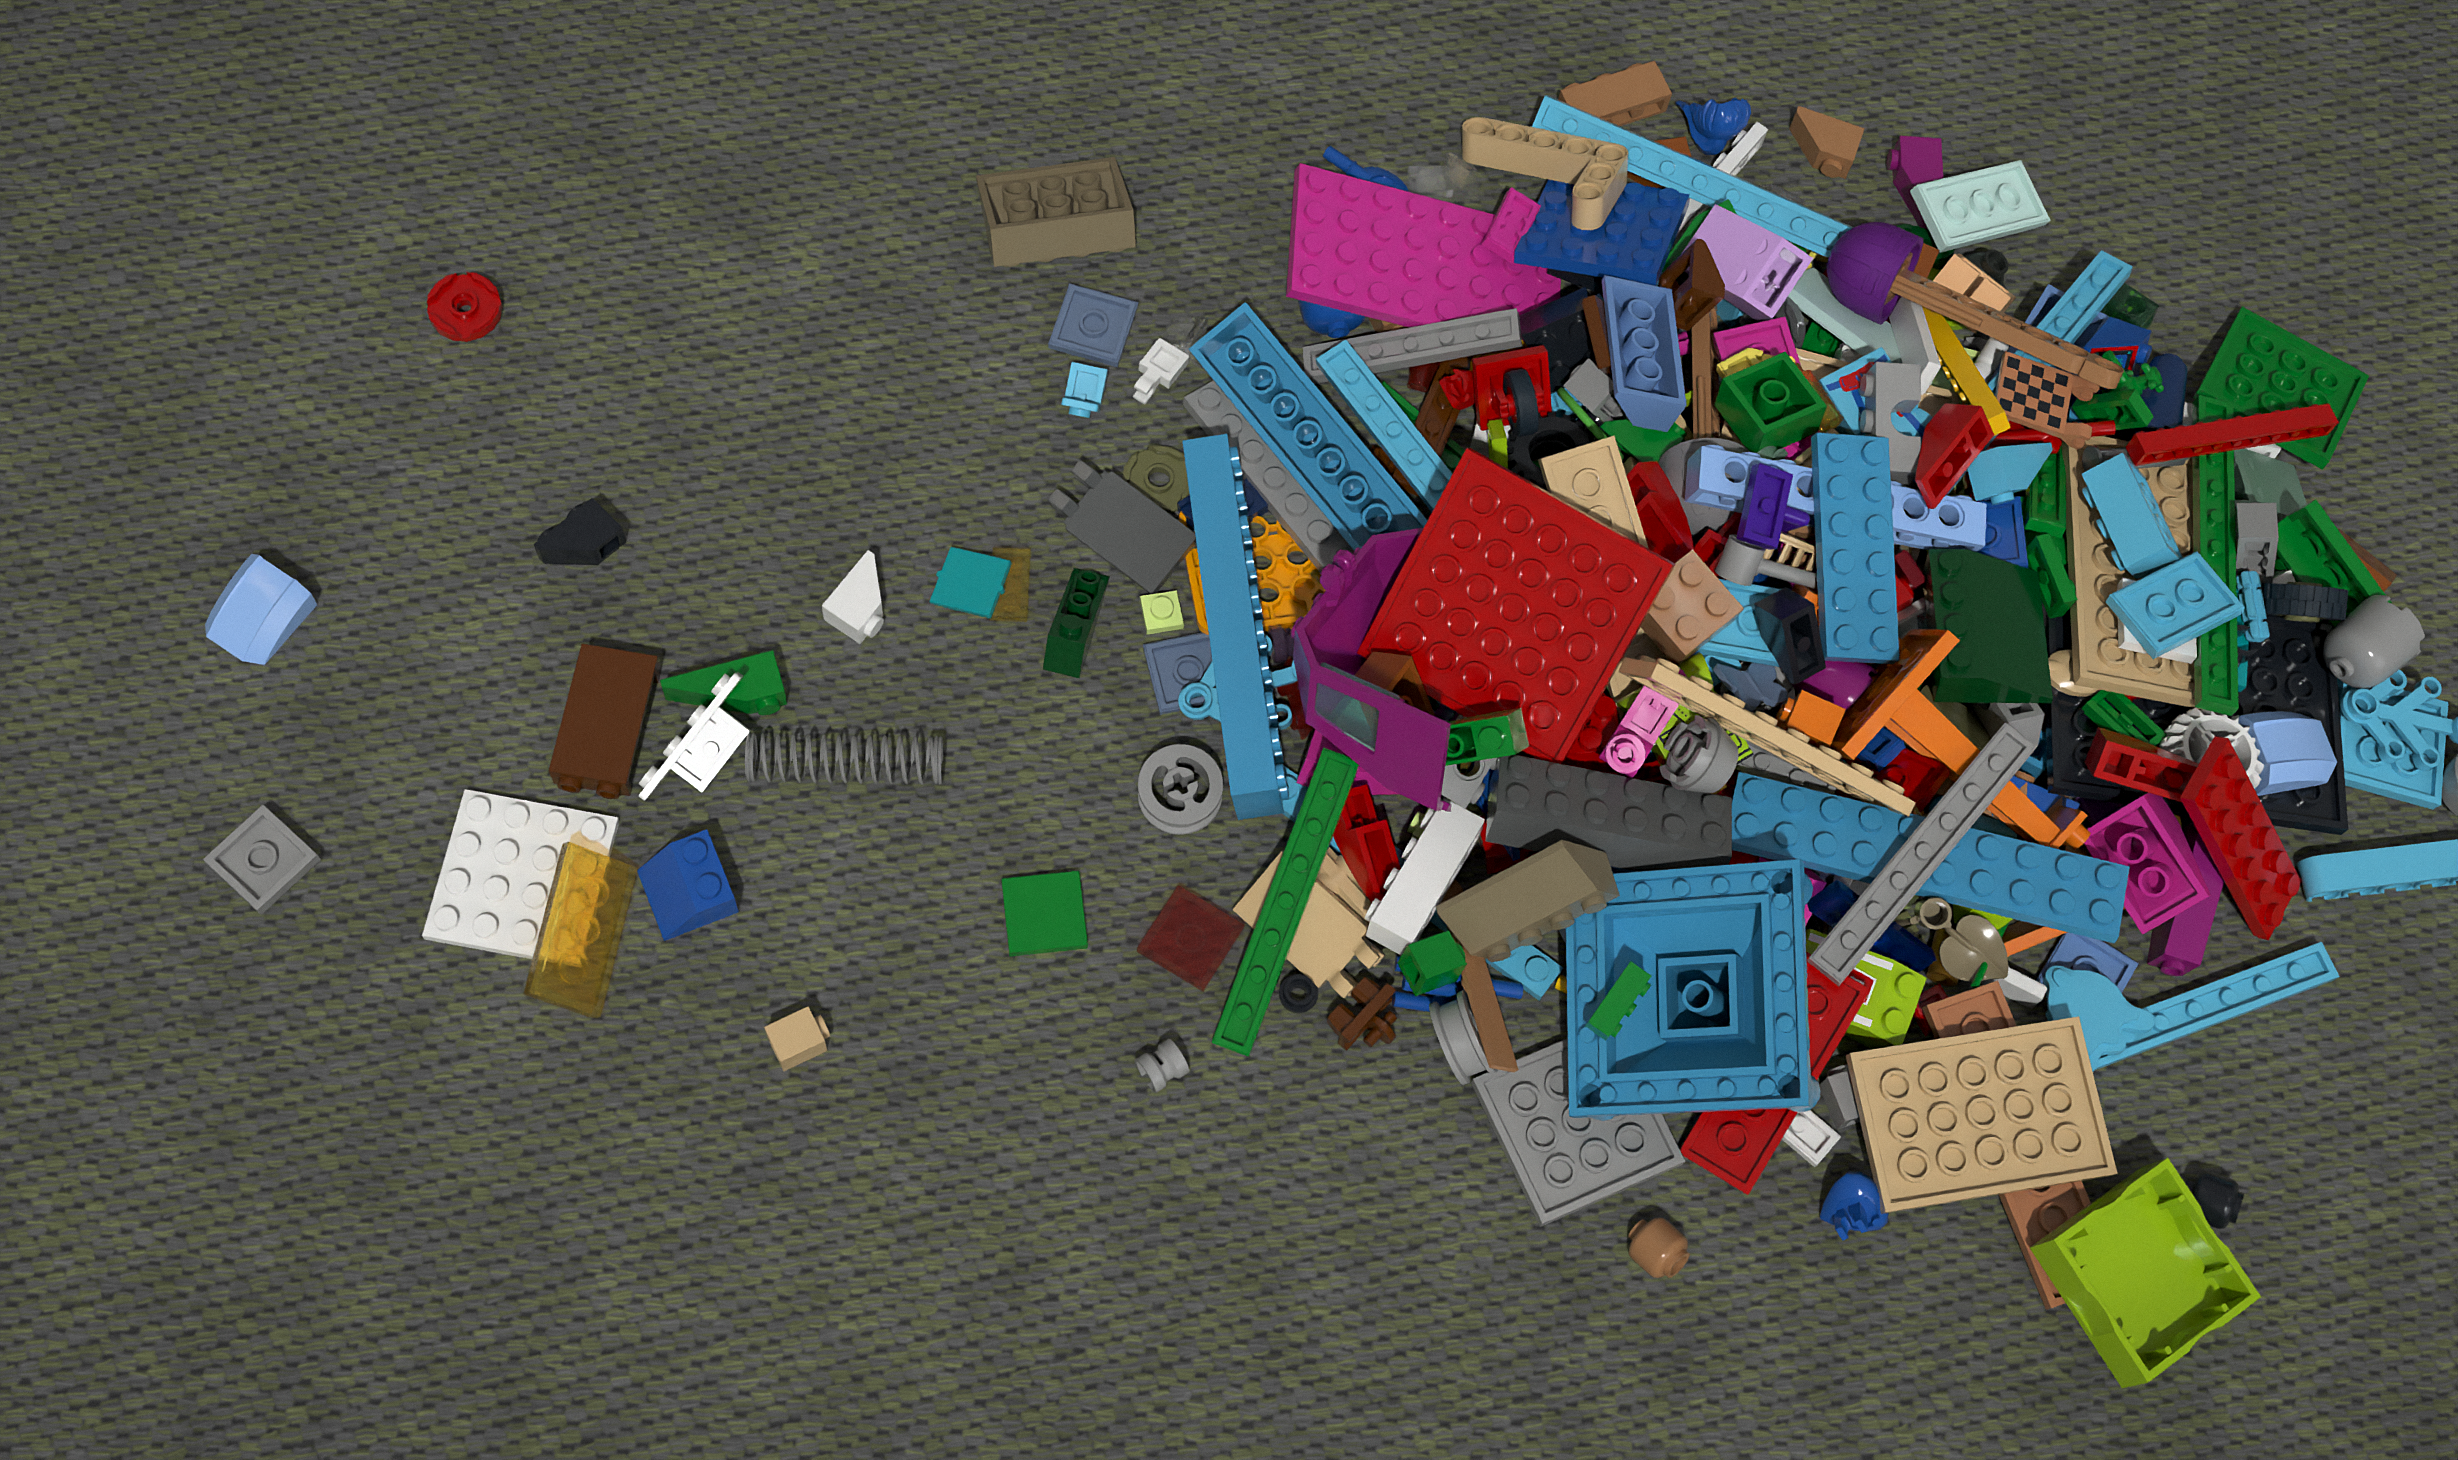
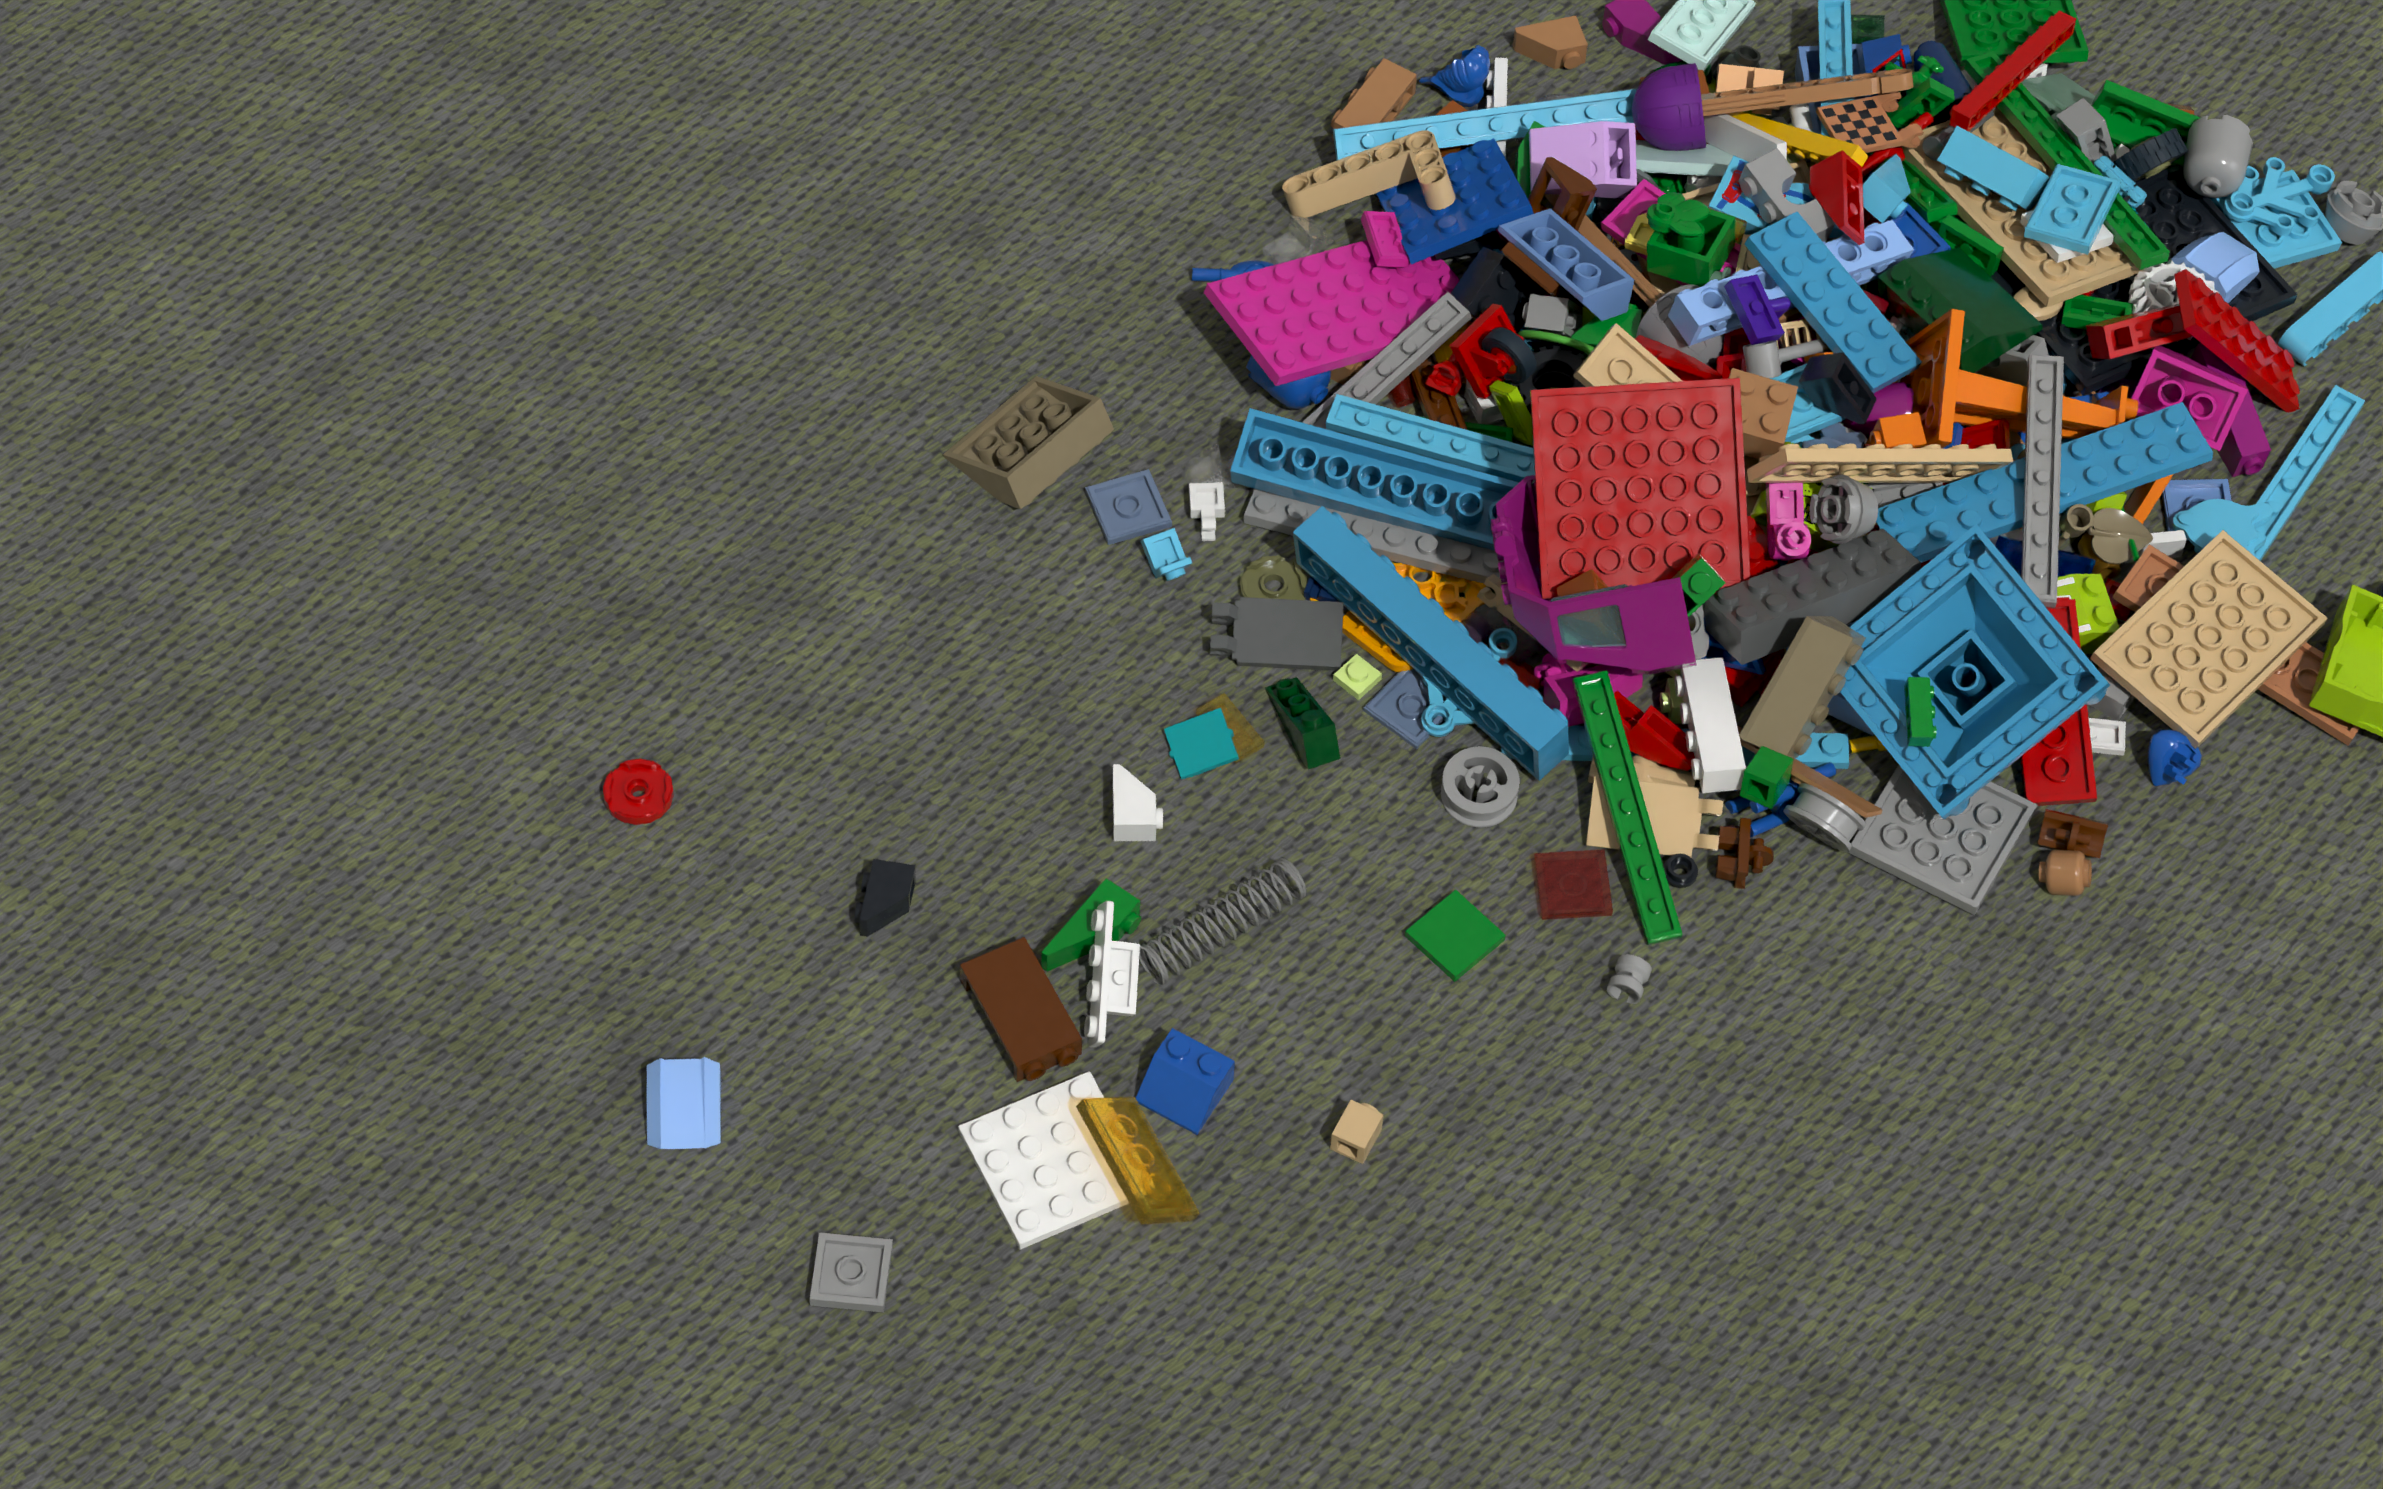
camera: 30 degrees left, 10 degrees down
(1694, 1214) = (2072, 833): none -> reddish brown hips
(1771, 369) = (1677, 214): none -> green plate

